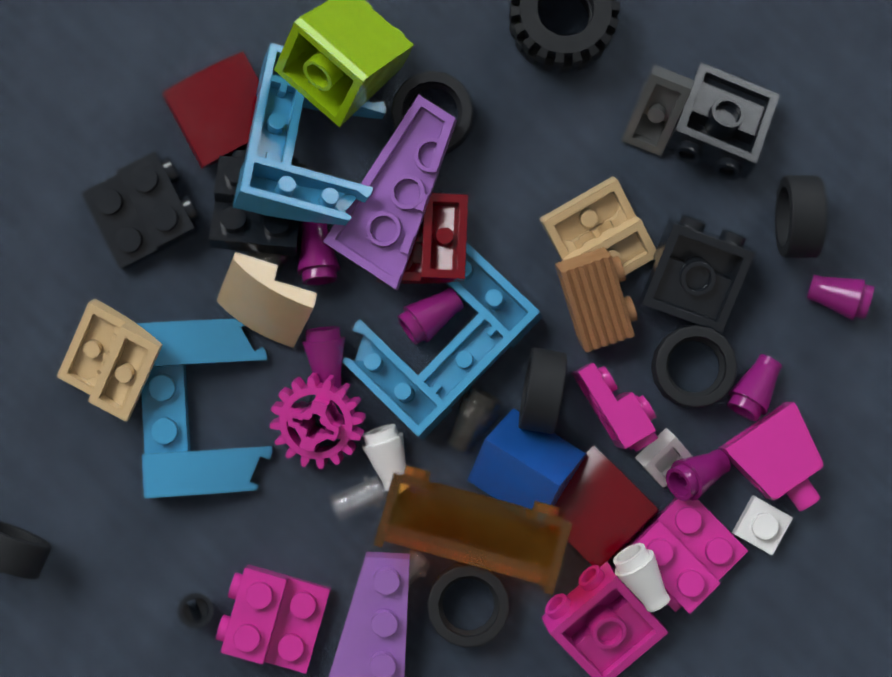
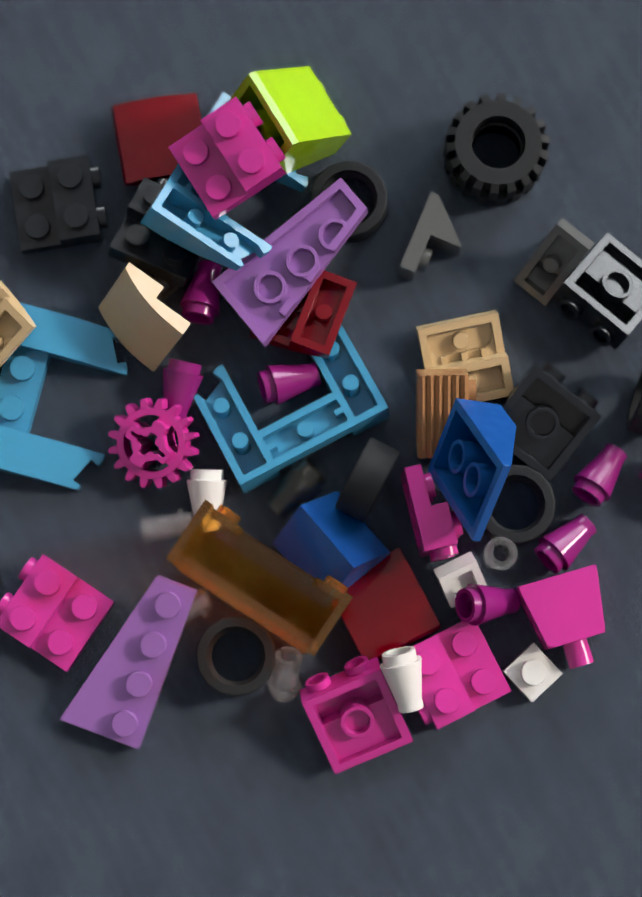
camera: 25 degrees right, 5 degrees down
(301, 113) = (228, 157): none -> dark pink plate
(524, 613) = (284, 682): none -> clear pin
(525, 114) = (434, 230): none -> dark grey slope
(648, 345) = (474, 461): none -> blue slope
(705, 416) = (507, 547): none -> clear pin
(769, 310) = (599, 476): none -> magenta cone

